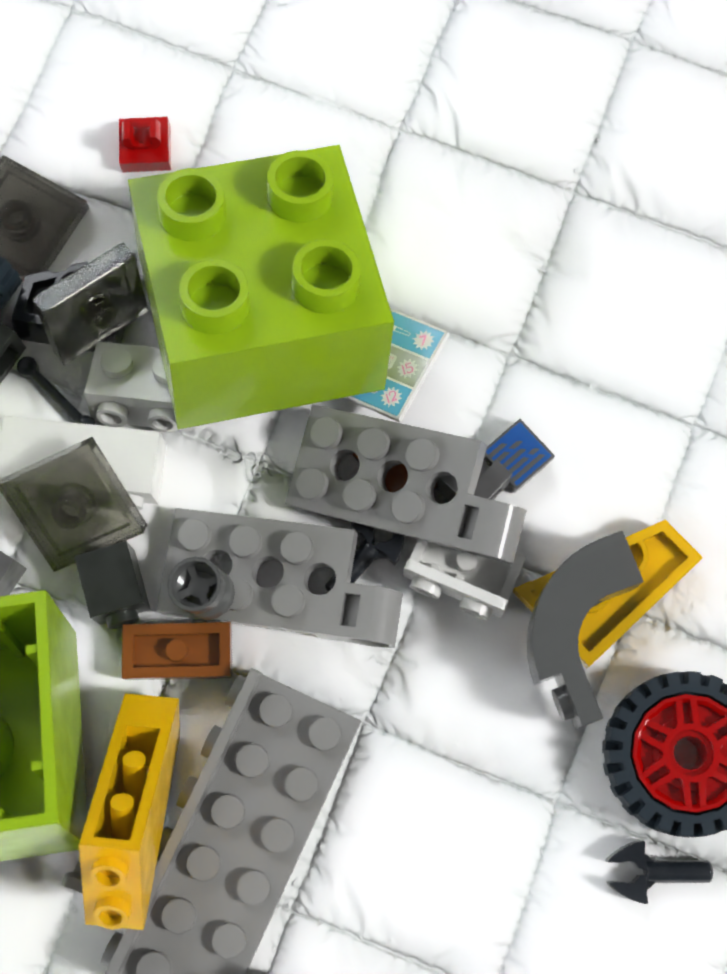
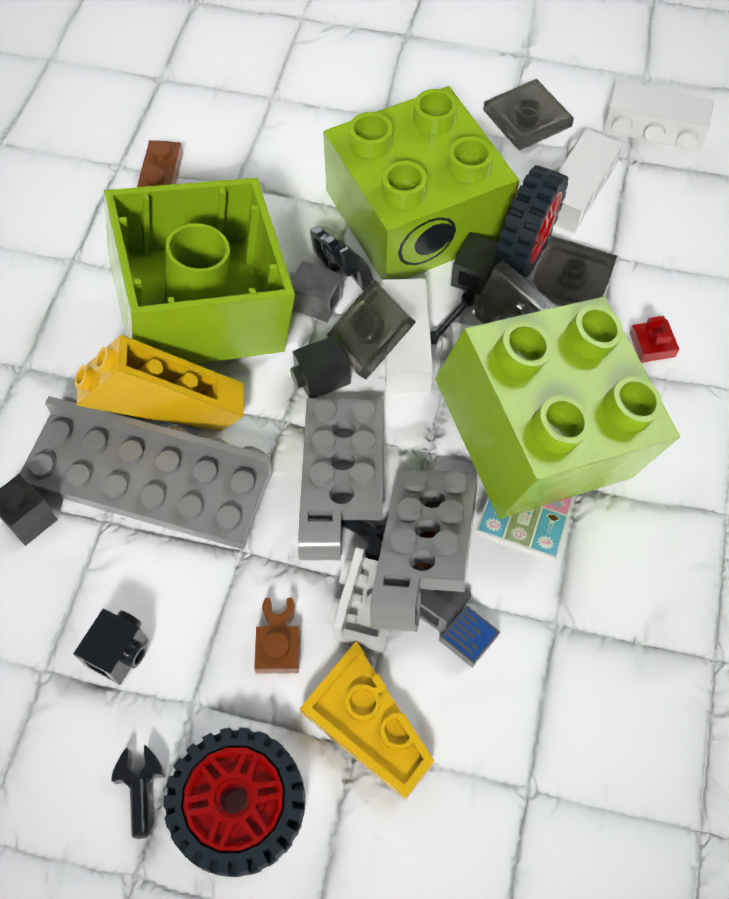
camera: 80 degrees right, 15 degrees down
(177, 651) = (279, 416): dark orange plate -> none
(193, 580) = (320, 411): dark grey wheel -> none
(481, 894) = (113, 645): none -> black brick
(500, 687) = (277, 644): none -> dark orange plate
(583, 580) = (336, 671): dark grey arch -> none

